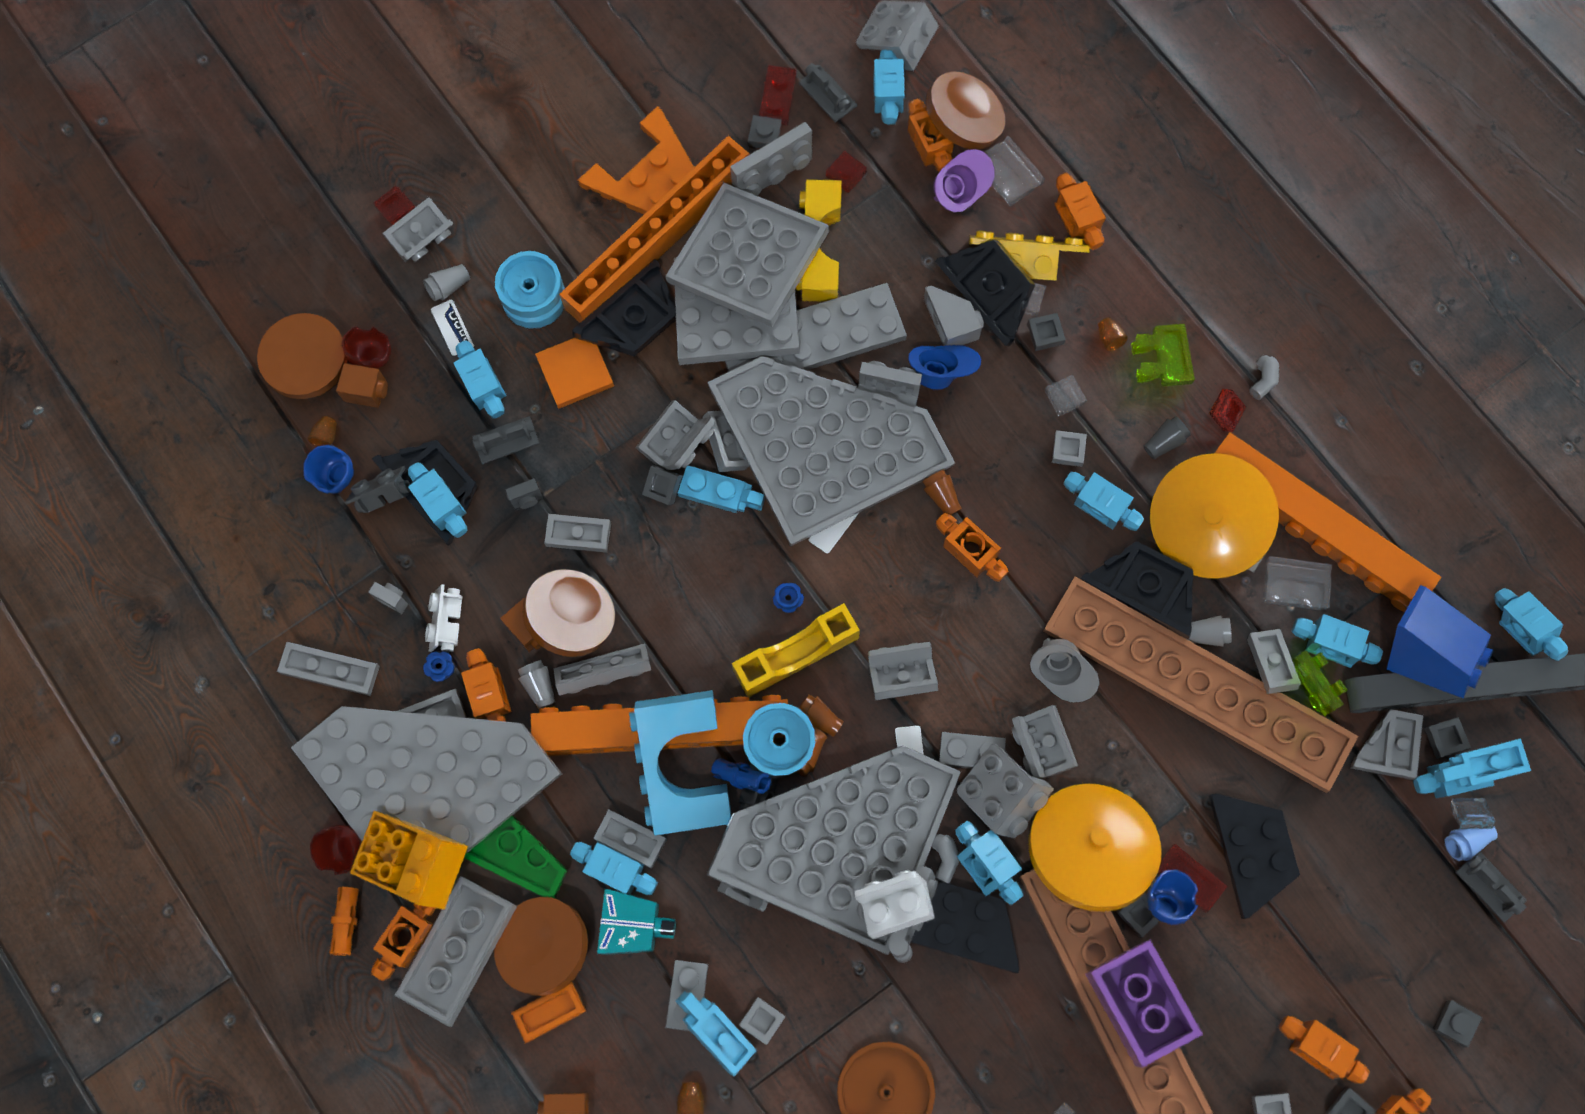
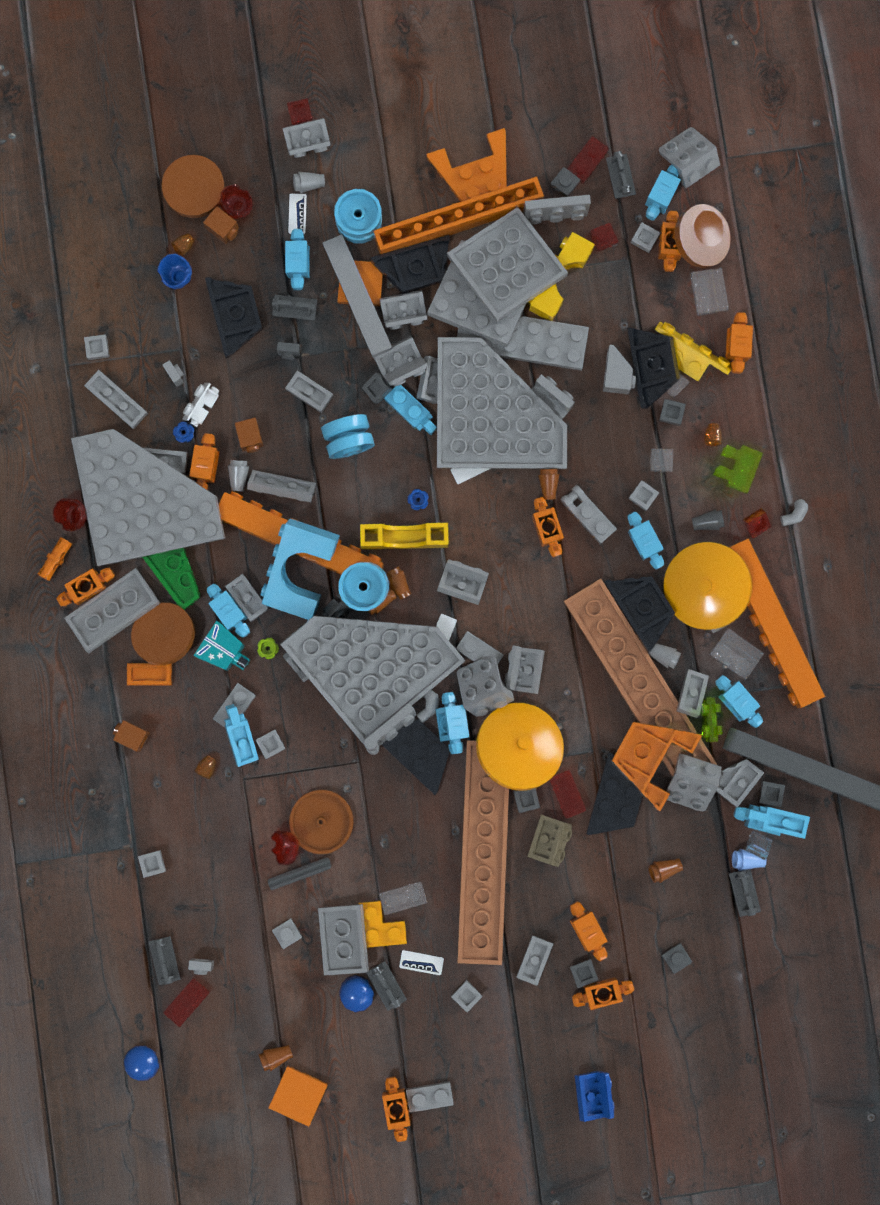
camera: 20 degrees right, 10 degrees up
(271, 615) = (96, 347): none -> light grey plate
(368, 493) = (193, 299): dark grey hinge -> none
(409, 860) = (109, 544): light orange slope -> none
(437, 500) = (232, 327): medium azure piece -> none
(568, 613) = (278, 440): piece -> none
(579, 385) = (357, 296): none -> light grey tile
(645, 373) = (403, 309): none -> light grey bracket
(656, 561) = (347, 436): none -> medium azure wheel
(688, 900) = (274, 648): none -> lime plate
(741, 775) = (331, 594): blue pin -> none
(895, 903) = (381, 718): white bracket -> none
(897, 147) = (645, 237): none -> light grey plate
(943, 364) = (594, 400): blue piece -> none
(964, 180) = (674, 284): medium lavender piece -> none
(1013, 507) = (588, 515): none -> light grey plate
(1064, 670) = (561, 632): light grey piece -> none
(1143, 1004) = (495, 850): medium lavender brick -> none
(1172, 897) = (548, 799): blue hair -> none
(1203, 953) = (550, 841): none -> dark tan bracket
(1257, 769) = (644, 750): none -> orange wing
(1345, 775) = (693, 782): none -> light grey bracket
(1371, 912) = (662, 870): none -> dark orange cone
(1439, 645) = (795, 736): blue slope -> none
(1531, 624) = (863, 753): medium azure piece -> none

